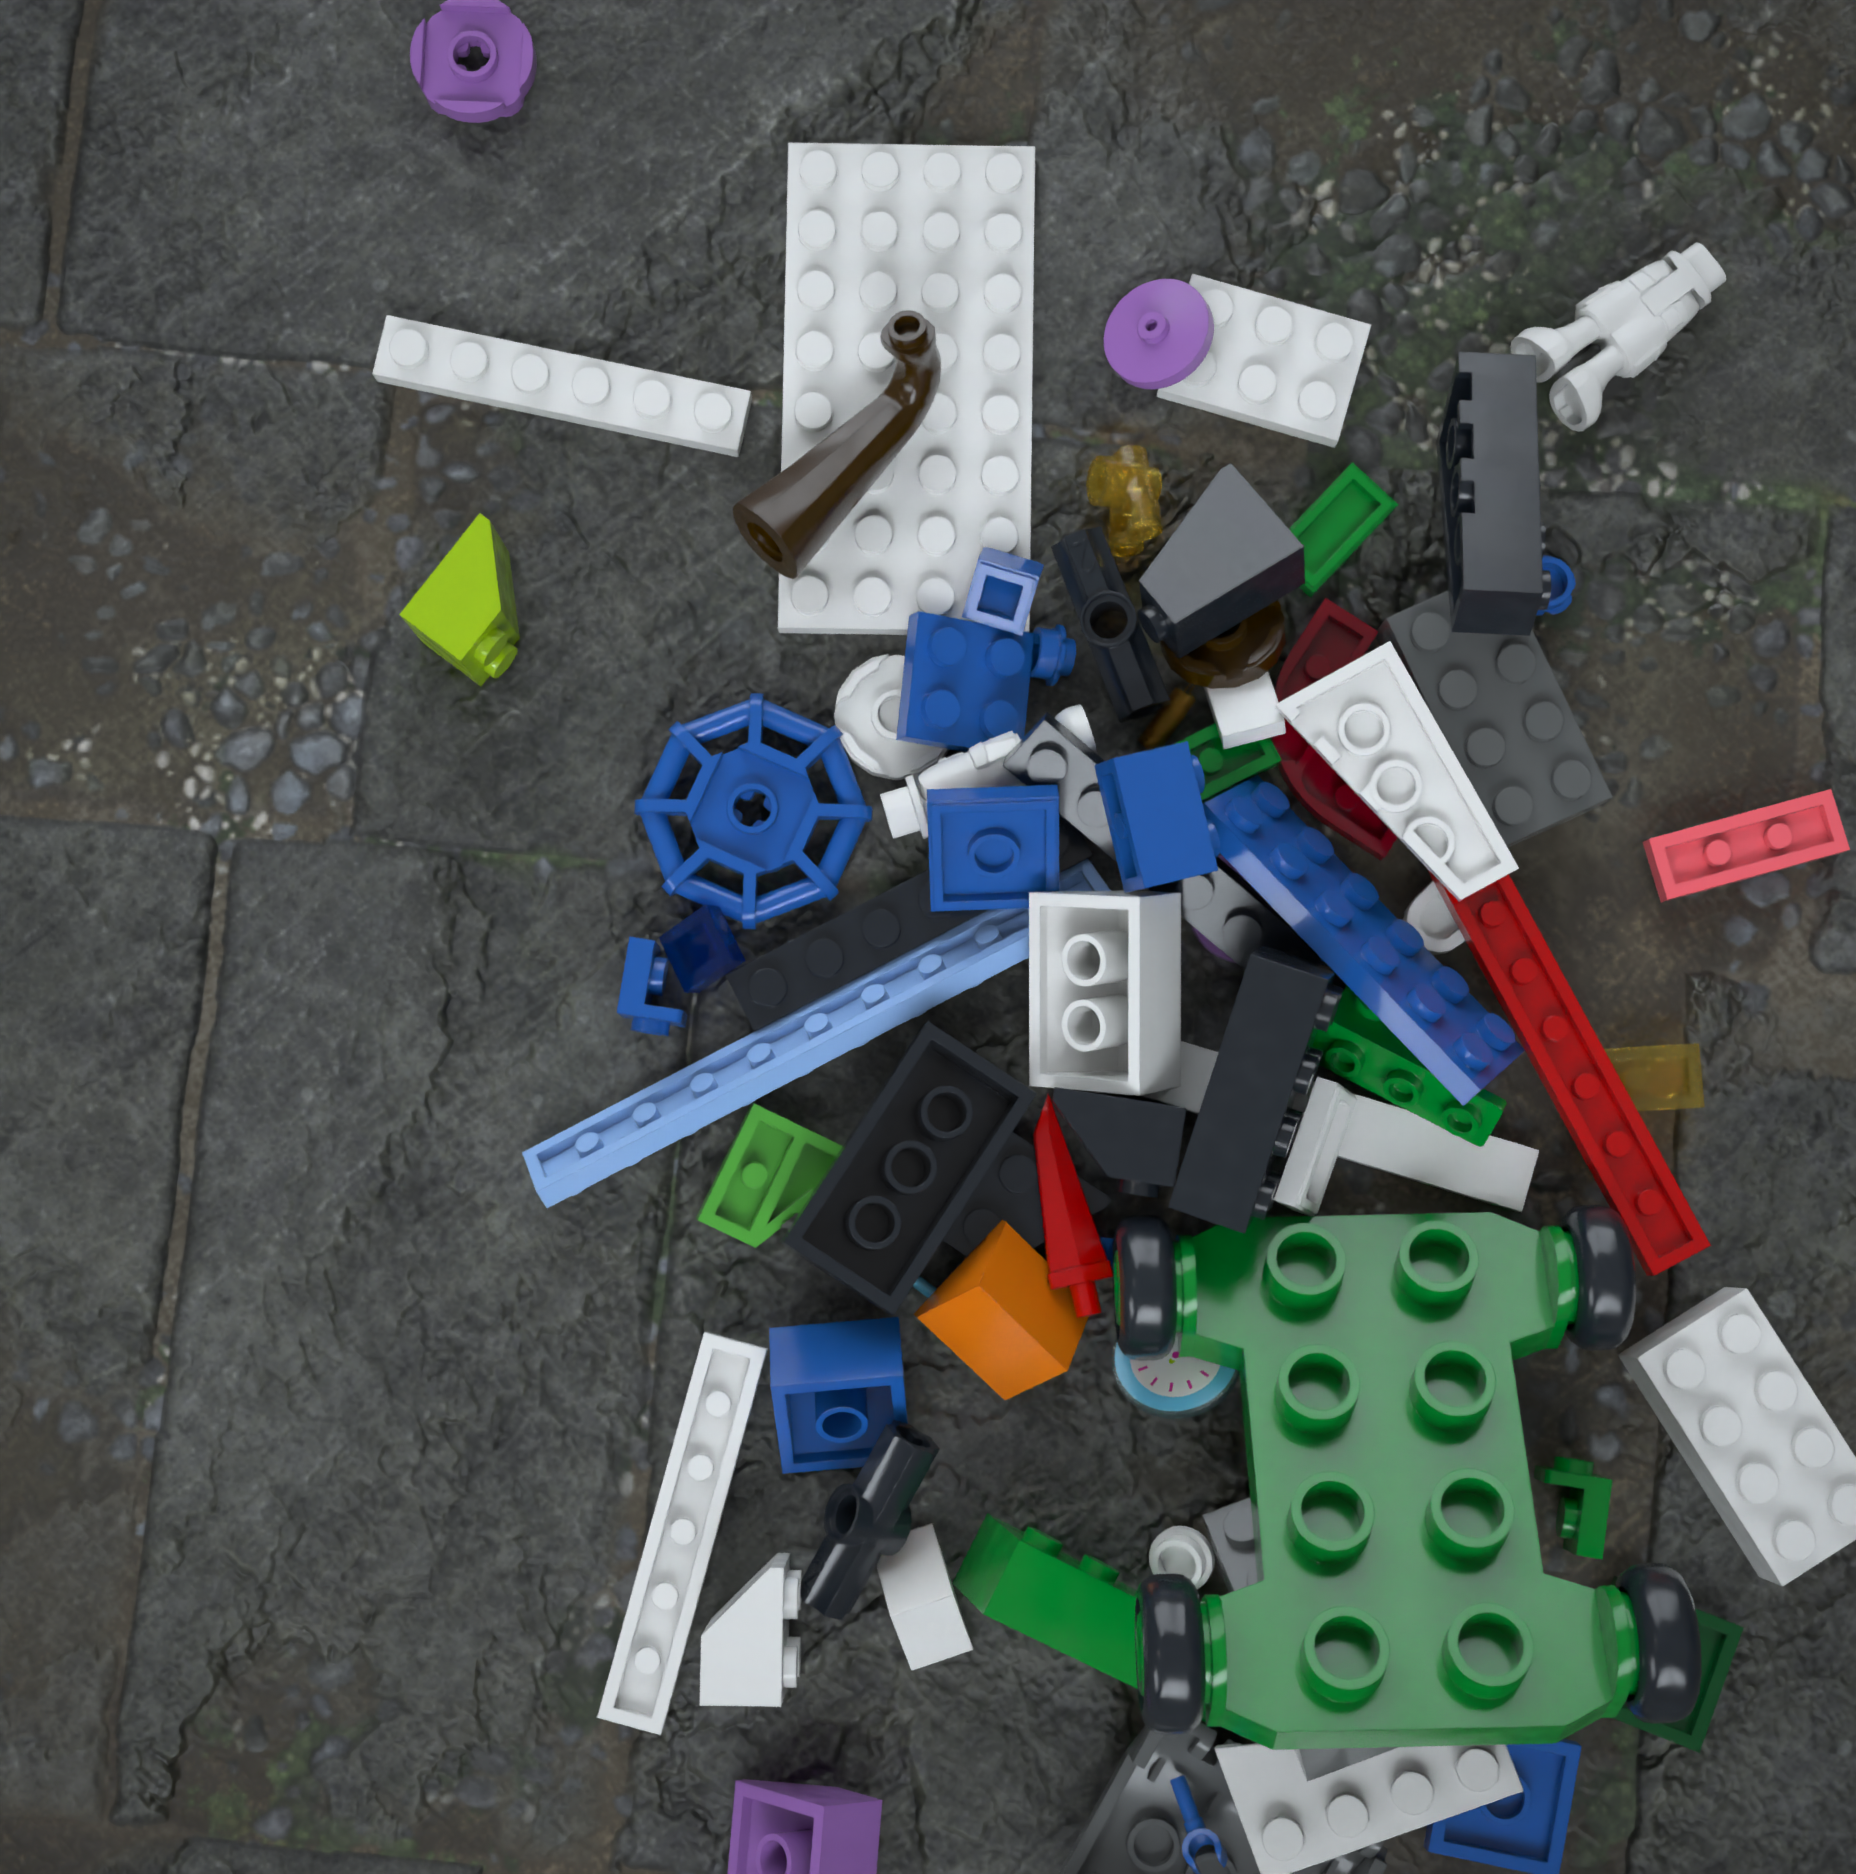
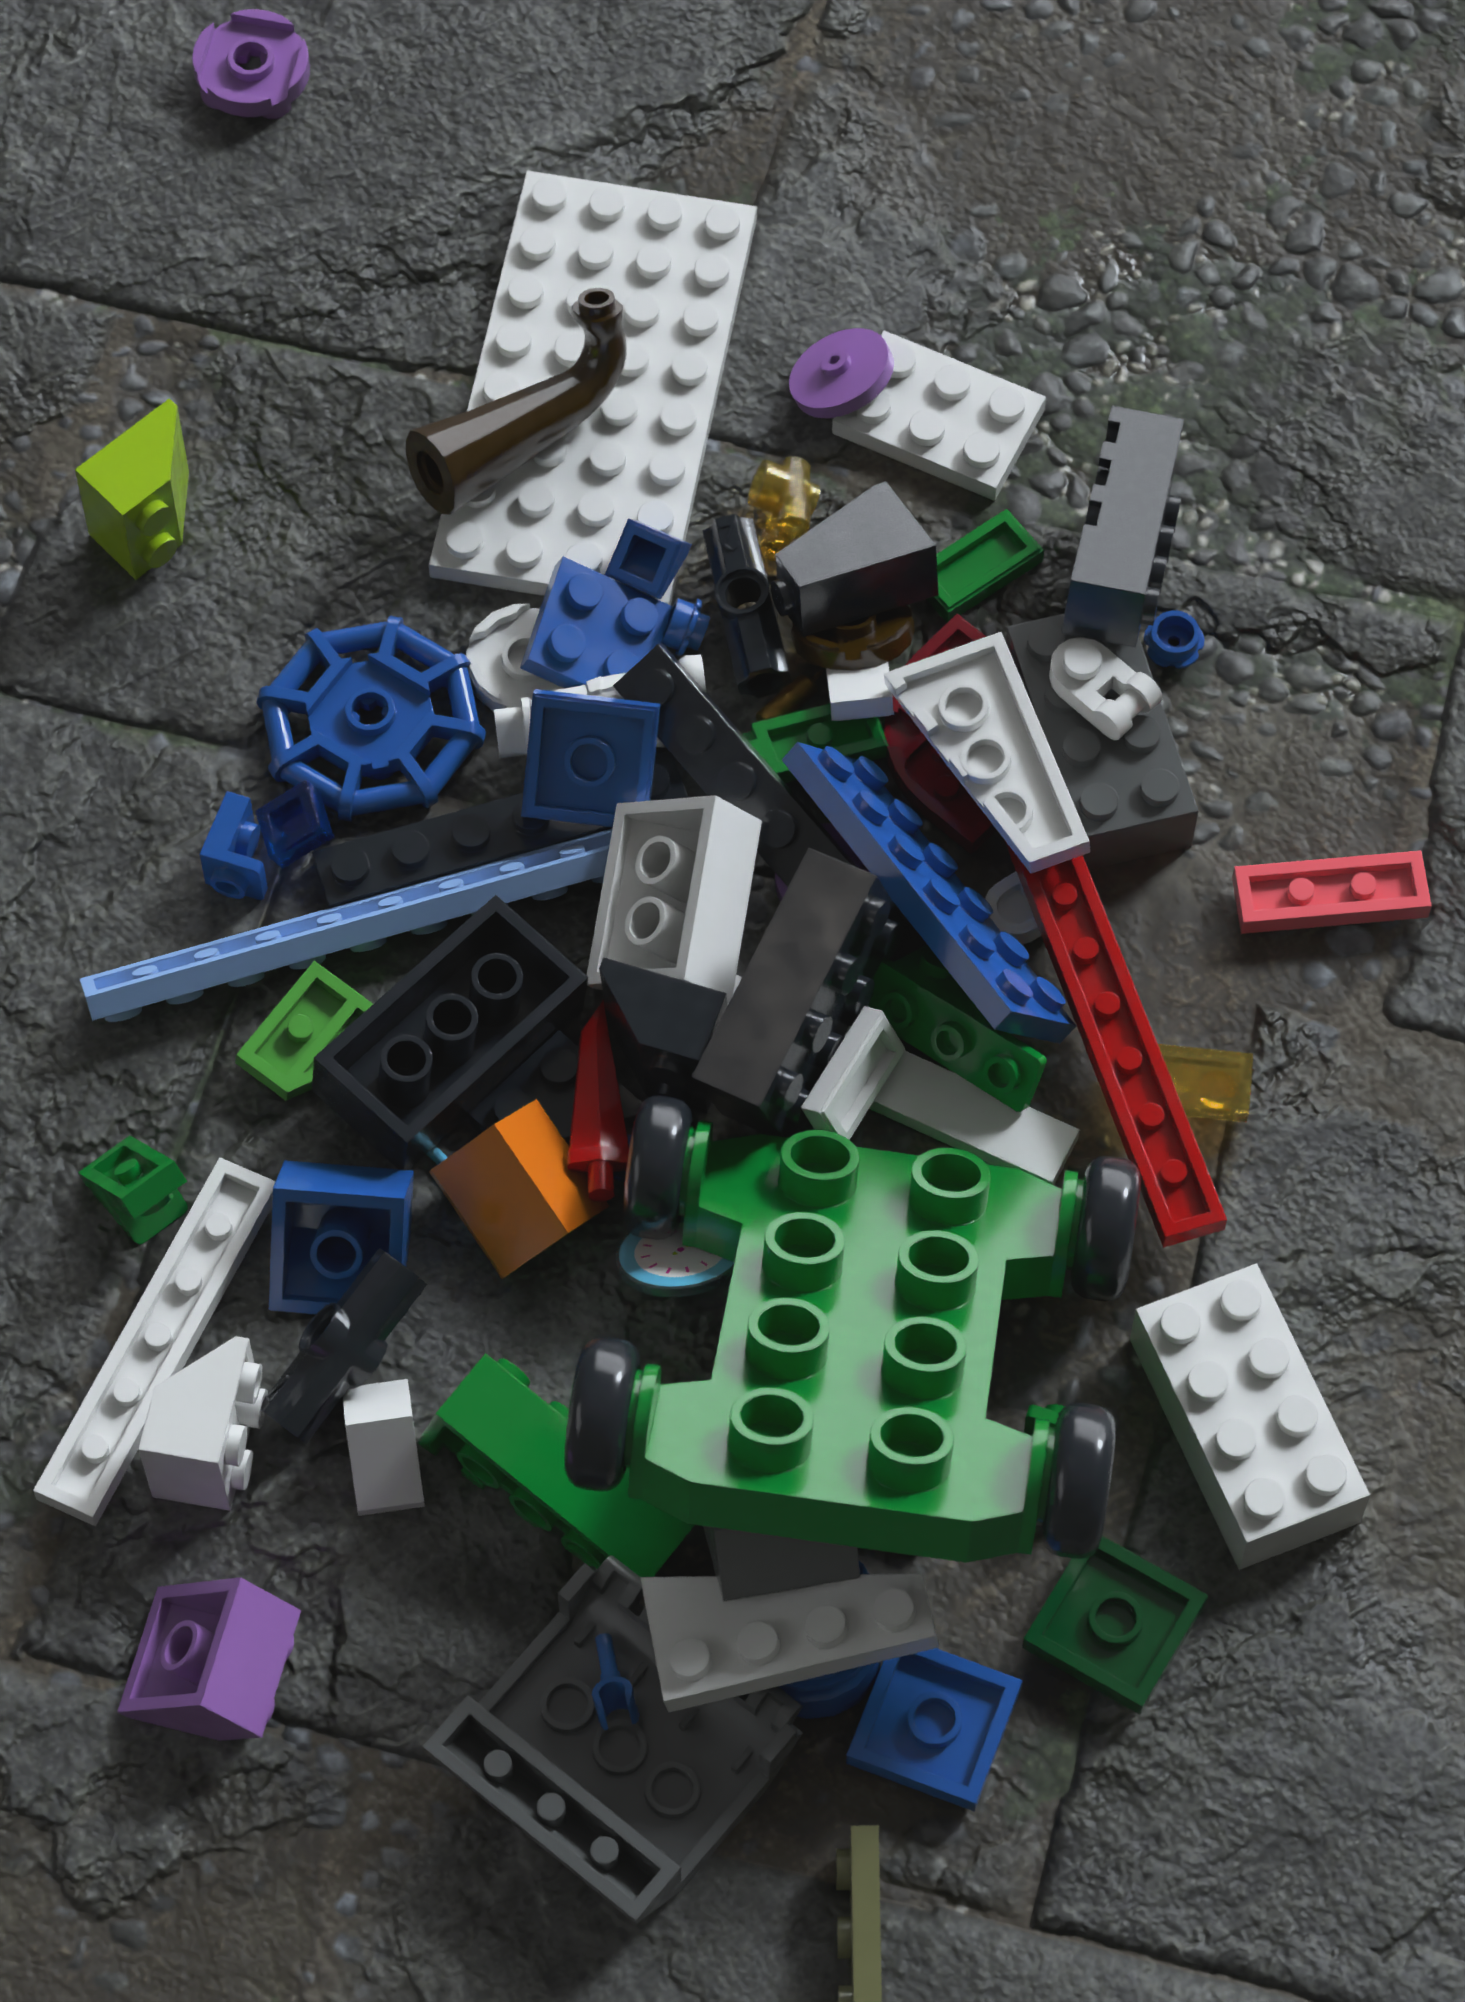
camera: 10 degrees right, 20 degrees down
(562, 386) = (272, 339): white plate -> none
(624, 1372) = (137, 1188): none -> green slope
(1158, 816) = (749, 736): blue brick -> none
(1479, 666) = (1086, 671): none -> white plate
(1629, 324) = (1284, 433): white piece -> none

